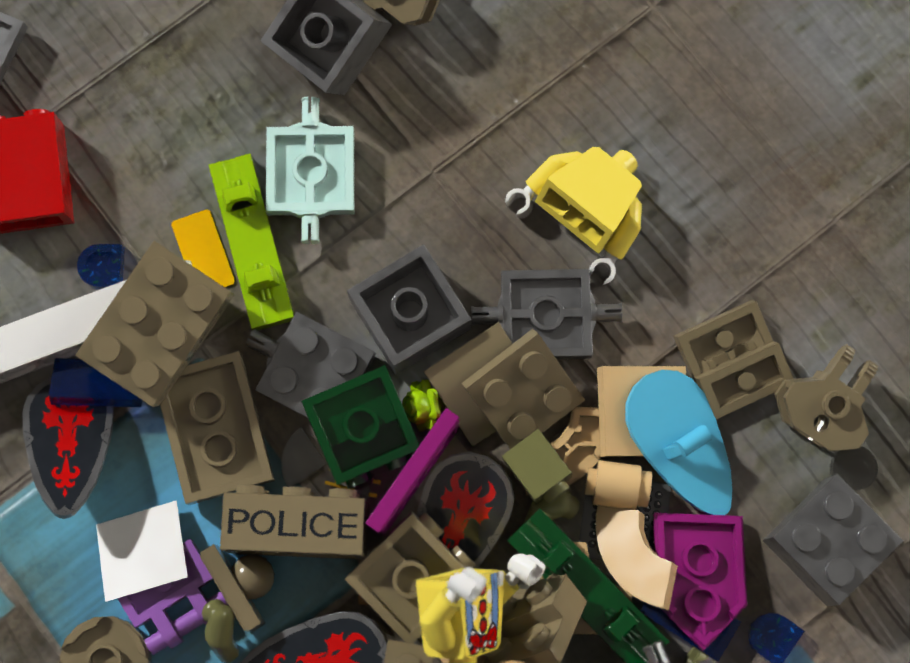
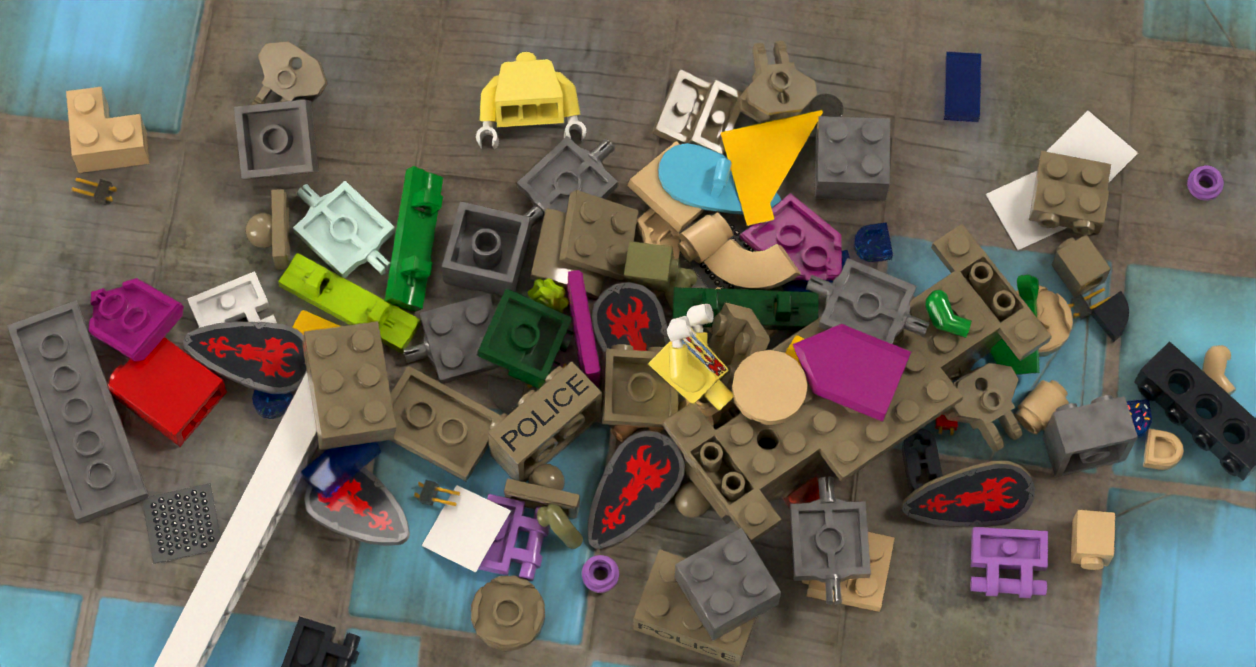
camera: 45 degrees left, 10 degrees down
(48, 83) = (133, 317): none -> magenta tile
(115, 208) = (251, 354): none -> shield
(147, 145) = (231, 302): none -> white plate
(147, 484) = (429, 493): none -> clear smoke piece
(250, 114) = (273, 230): none -> dark tan tile
(361, 237) = (414, 239): none -> green hinge
(747, 459) = (762, 159): none -> yellow sticker

